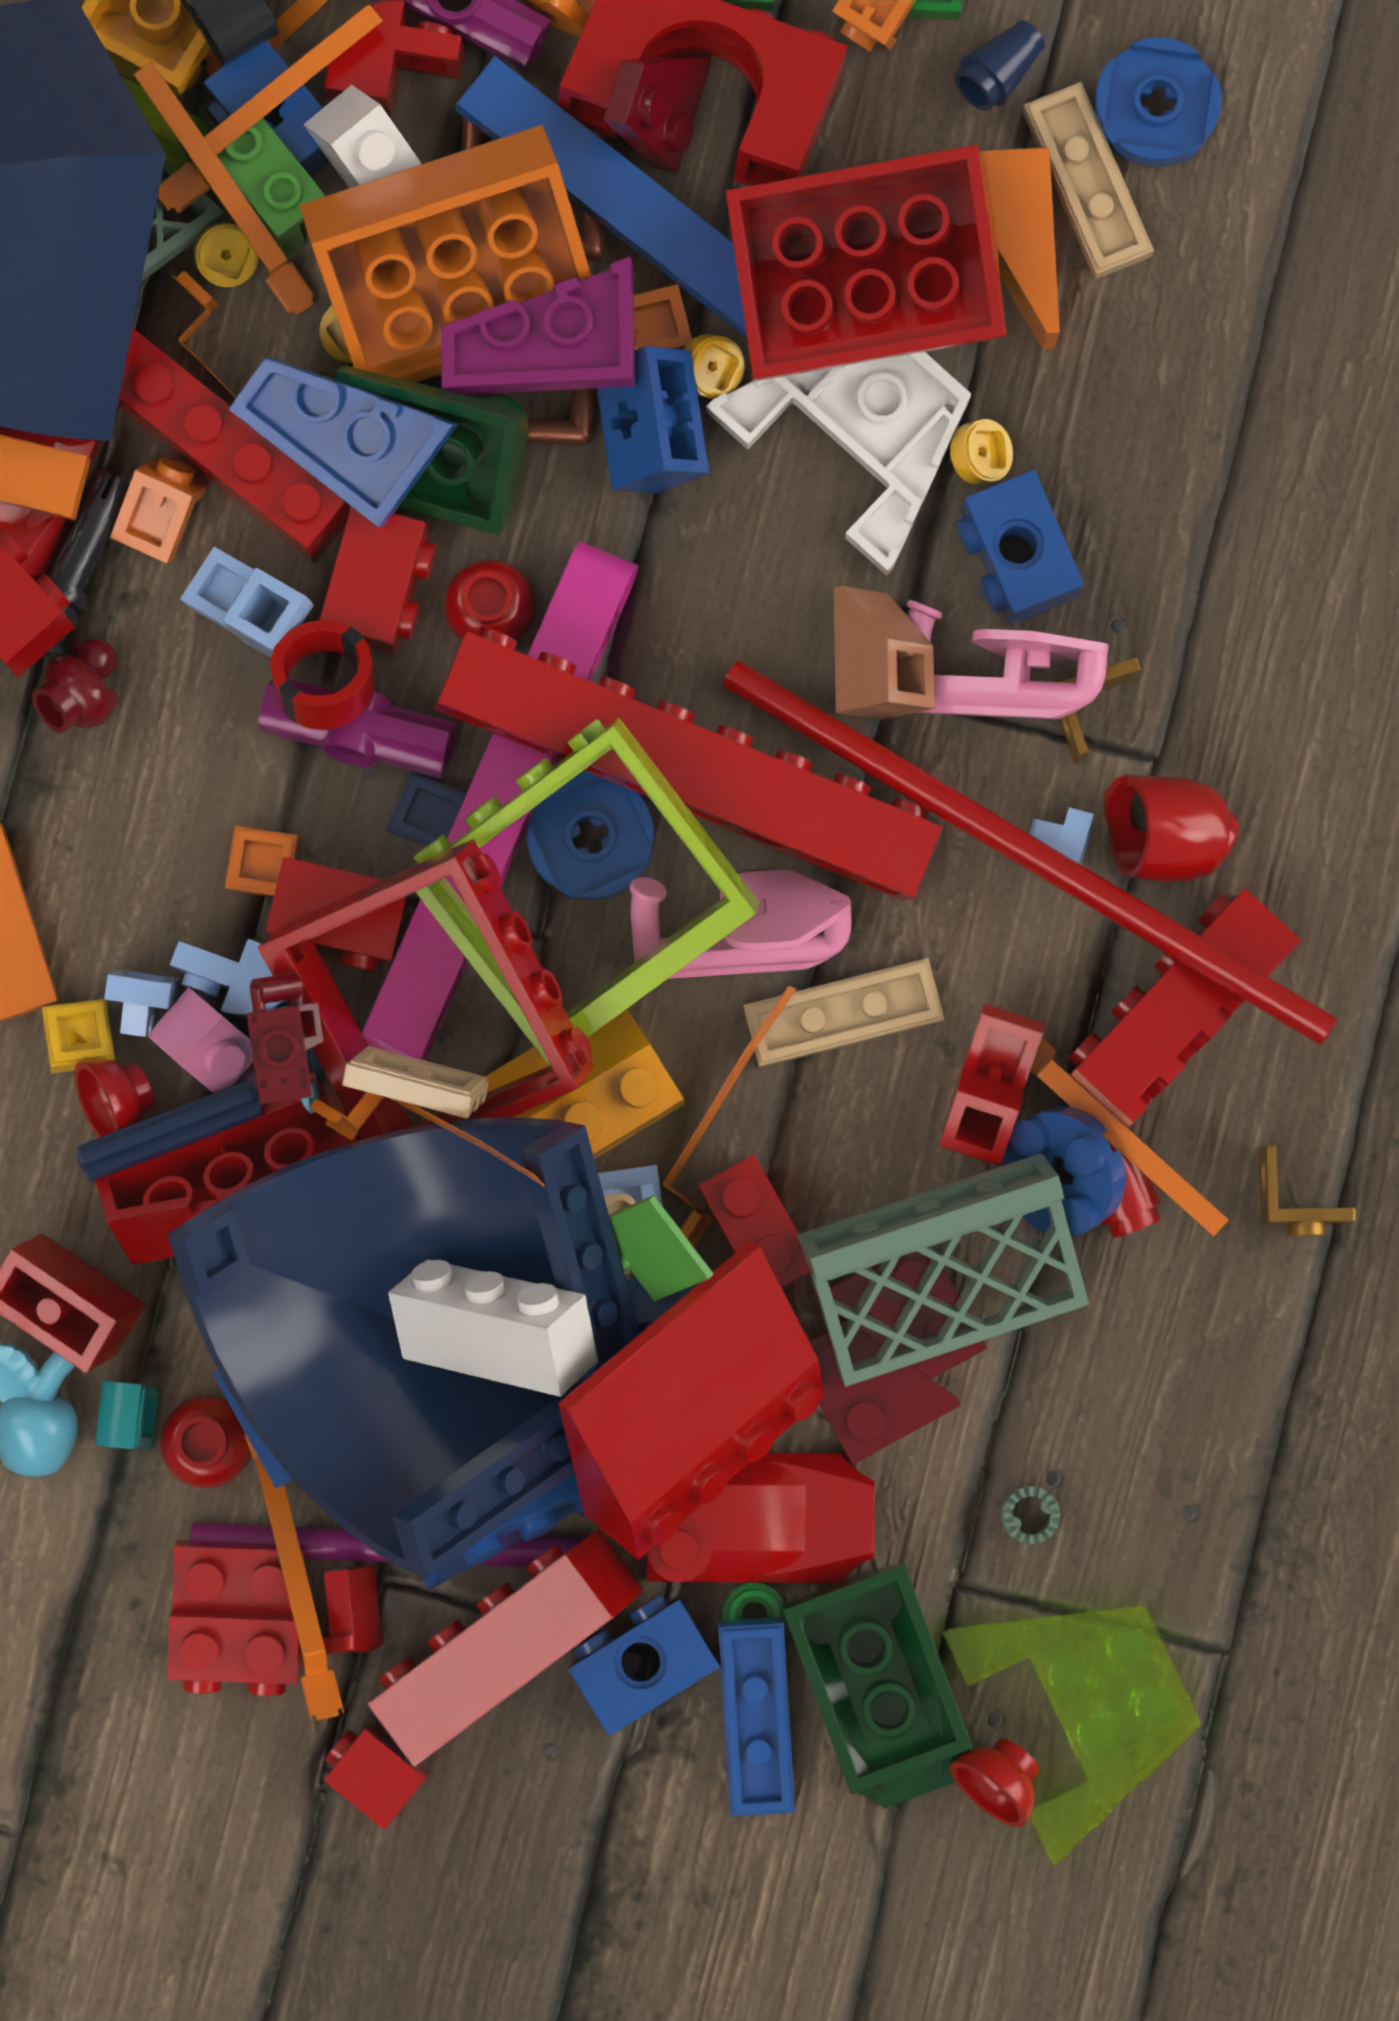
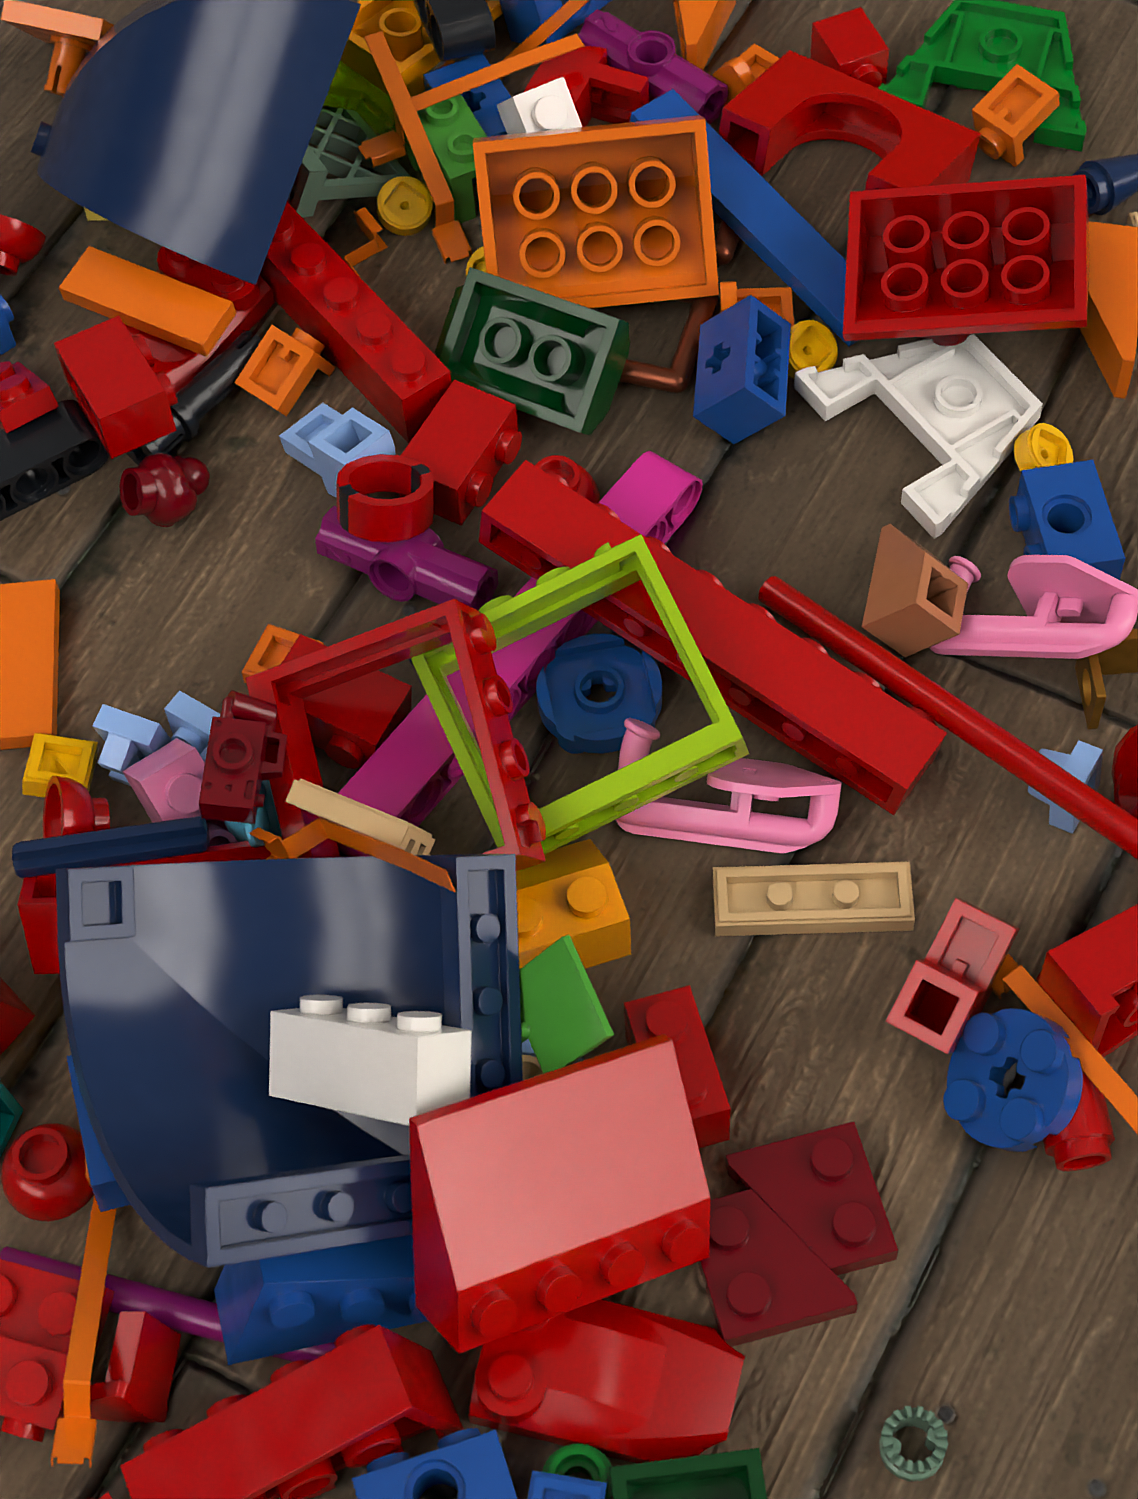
camera: 15 degrees right, 25 degrees down
(343, 435) = (462, 319): wing -> none
(547, 343) = (673, 283): magenta wing -> none
(657, 105) = (803, 149): dark red wing -> none
(698, 1220) = (679, 934): orange piece -> none
(943, 1218) = (862, 1079): sand green fence -> none

